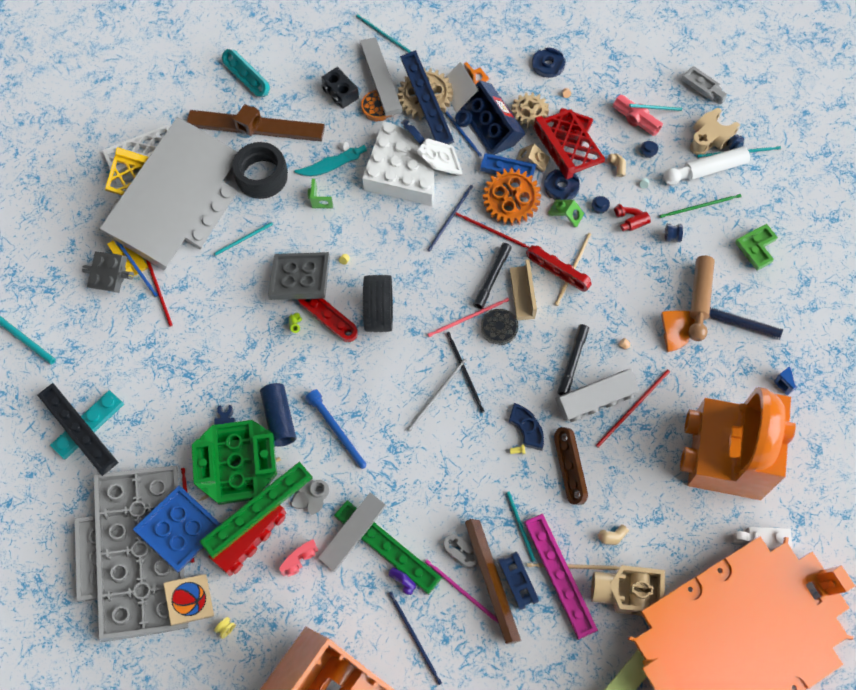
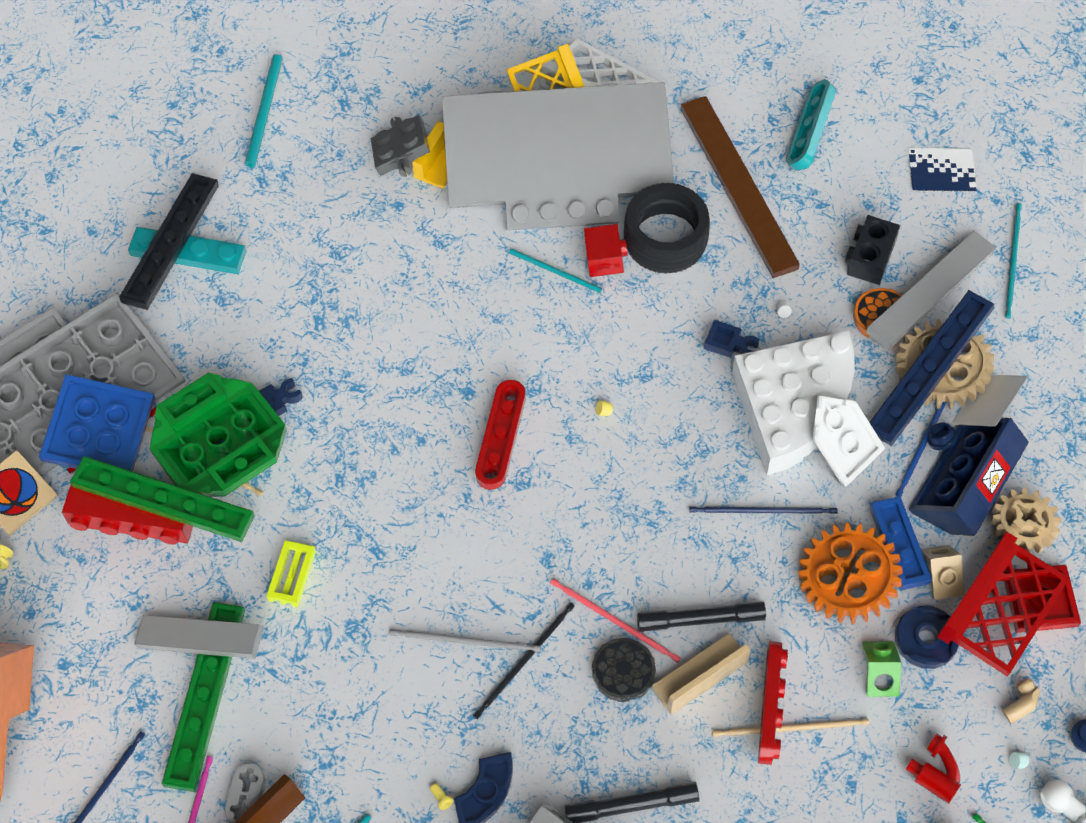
camera: 60 degrees right, 5 degrees down
(136, 268) = (426, 179): blue piece -> none
(159, 293) = (385, 251): red axle -> none
(247, 119) = (733, 167): reddish brown brick -> none
(251, 206) = (604, 250): none -> red head
(278, 418) = (313, 455): dark blue piece -> none
(292, 563) = (125, 588): coral slope -> none
(293, 320) = (463, 399): lime arm -> none
(299, 276) = (534, 365): dark grey plate -> none
(309, 498) = (223, 558): light grey plate -> none
(312, 34) = (942, 169): none -> sticker
(312, 195) = (673, 313): bright green bracket -> none
(315, 399) = (366, 487): blue piece -> none
(330, 163) = (747, 310): teal sword -> none
(346, 180) = (727, 339): none -> dark blue plate
(353, 476) = (284, 597): none -> neon yellow tile
(377, 303) = (544, 481): black tyre -> none
(402, 578) = (164, 740): dark purple arm -> none
(413, 131) = (859, 379): dark blue tile -> none
(472, 73) = (1023, 409): orange bracket -> none
(492, 230) = (779, 579): red piece -> none
(600, 204) = (930, 711): dark blue plate -> none

